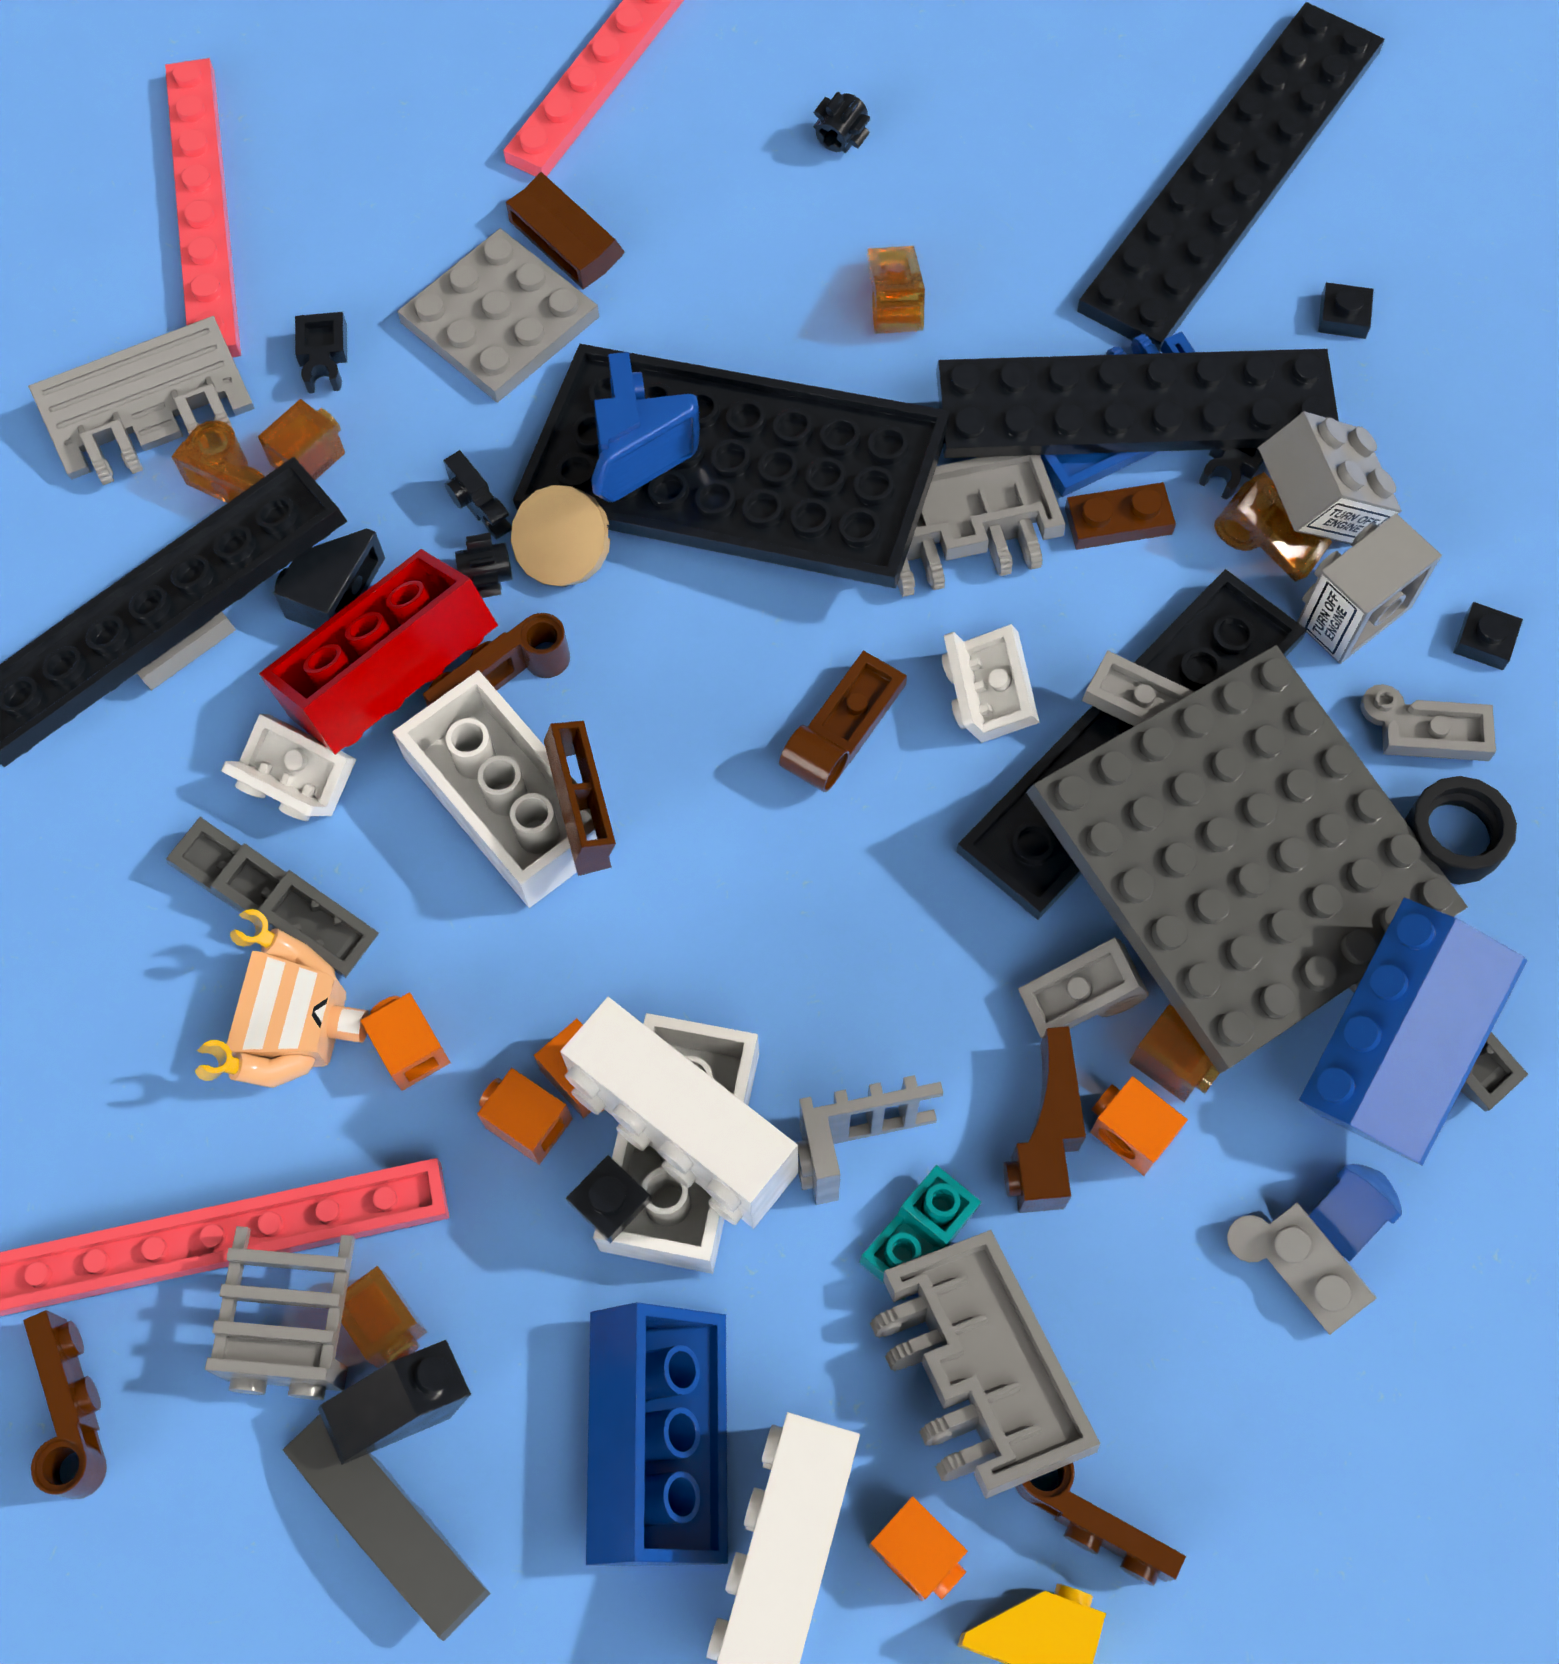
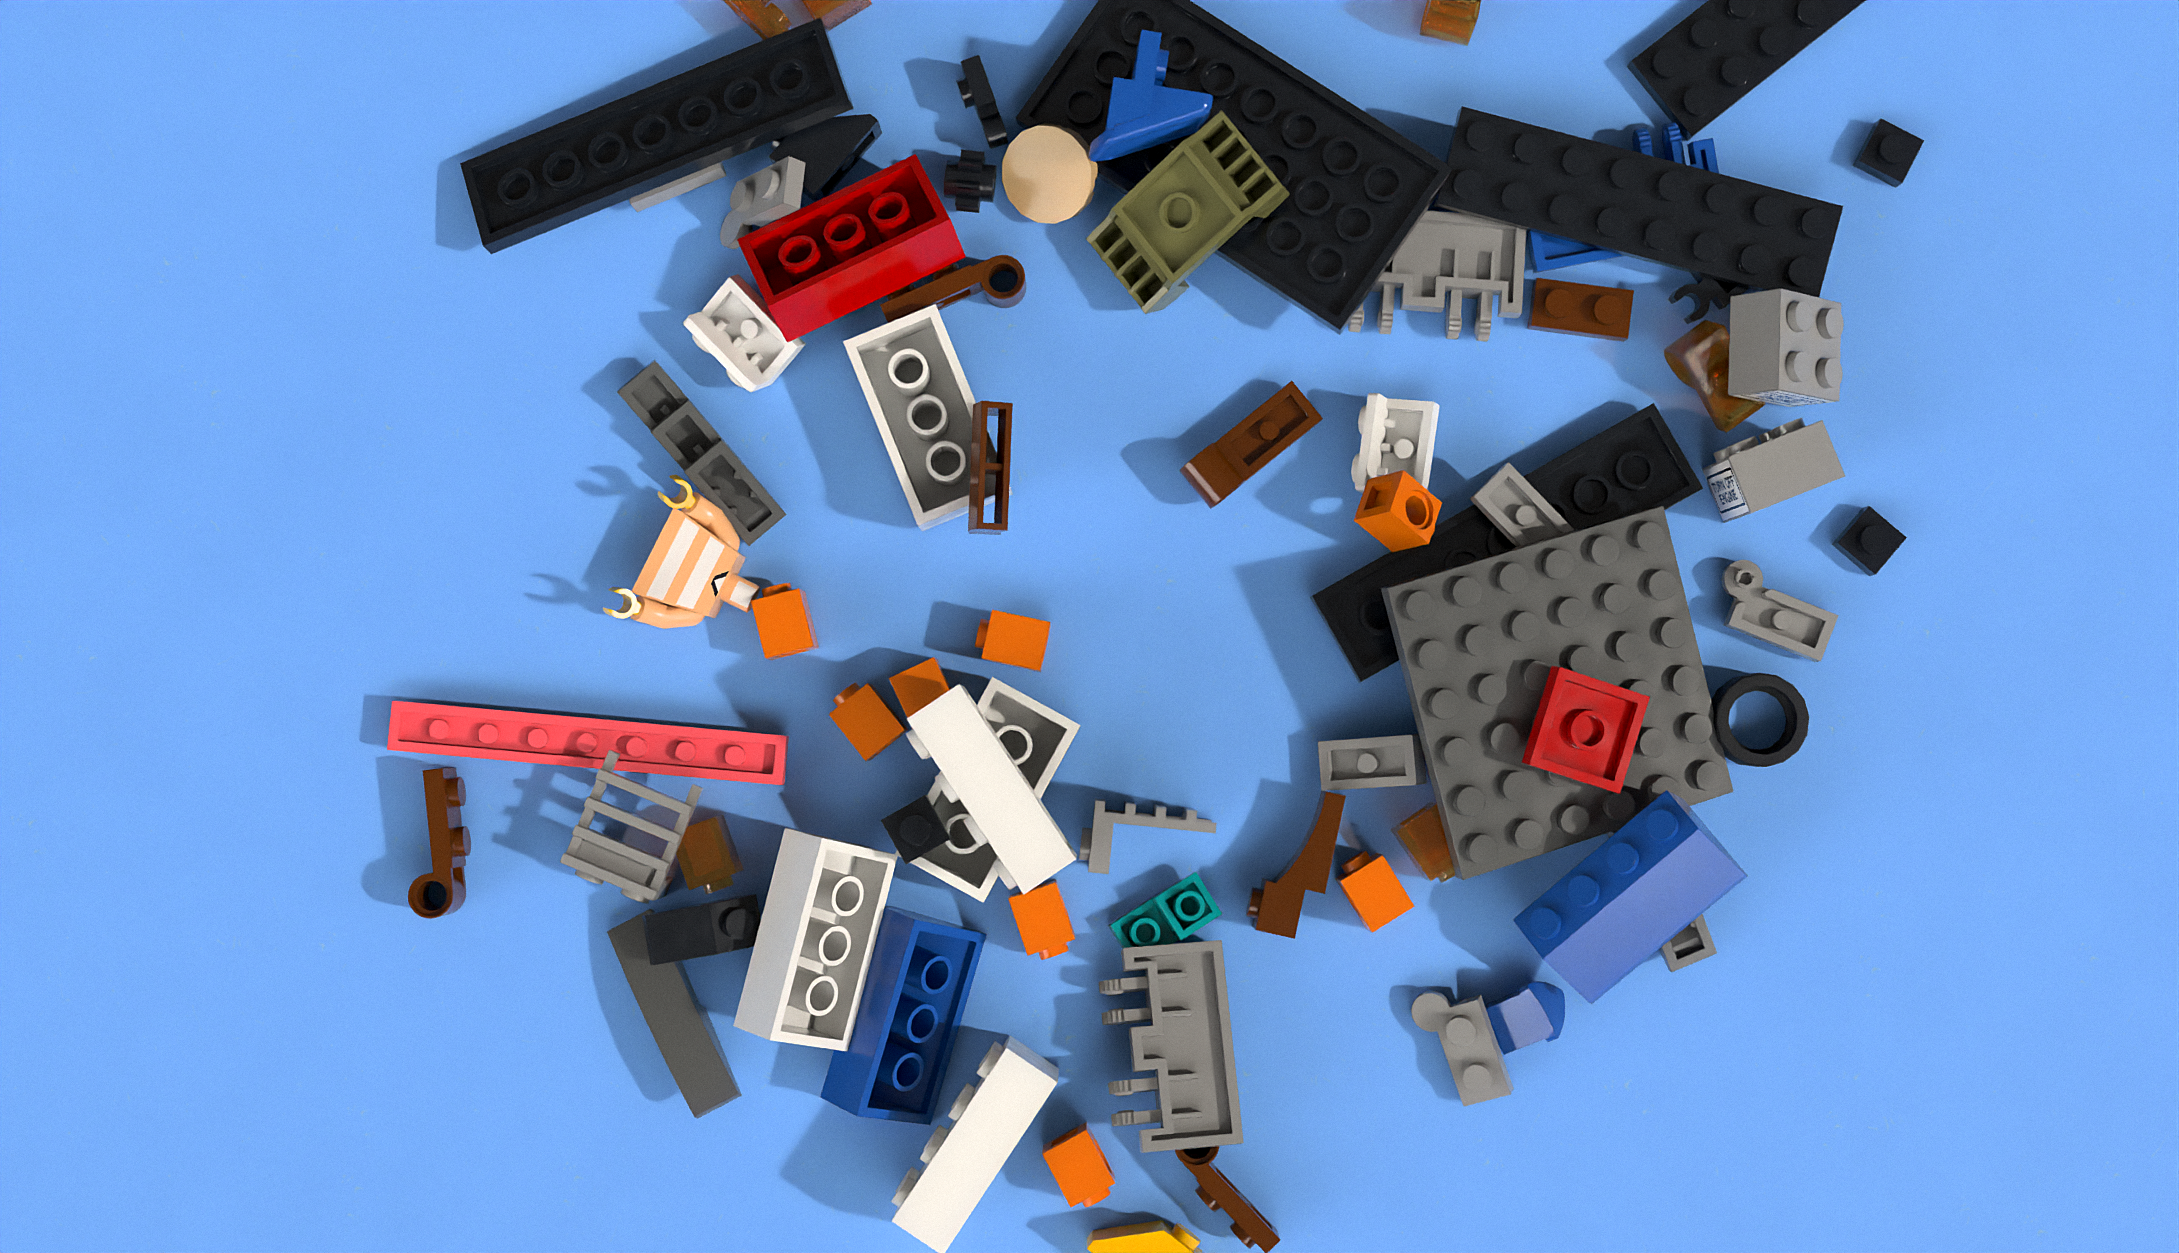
camera: 15 degrees right, 20 degrees up
(278, 630) = (763, 199): none -> light grey hinge
(528, 1370) = (815, 941): none -> white brick
(659, 982) = (1013, 640): none -> orange brick
(705, 520) = (1185, 212): none -> olive plate
(783, 1271) = (1042, 920): none -> orange brick
(1015, 729) = (1398, 511): none -> orange brick
(1293, 868) = (1585, 729): none -> red plate

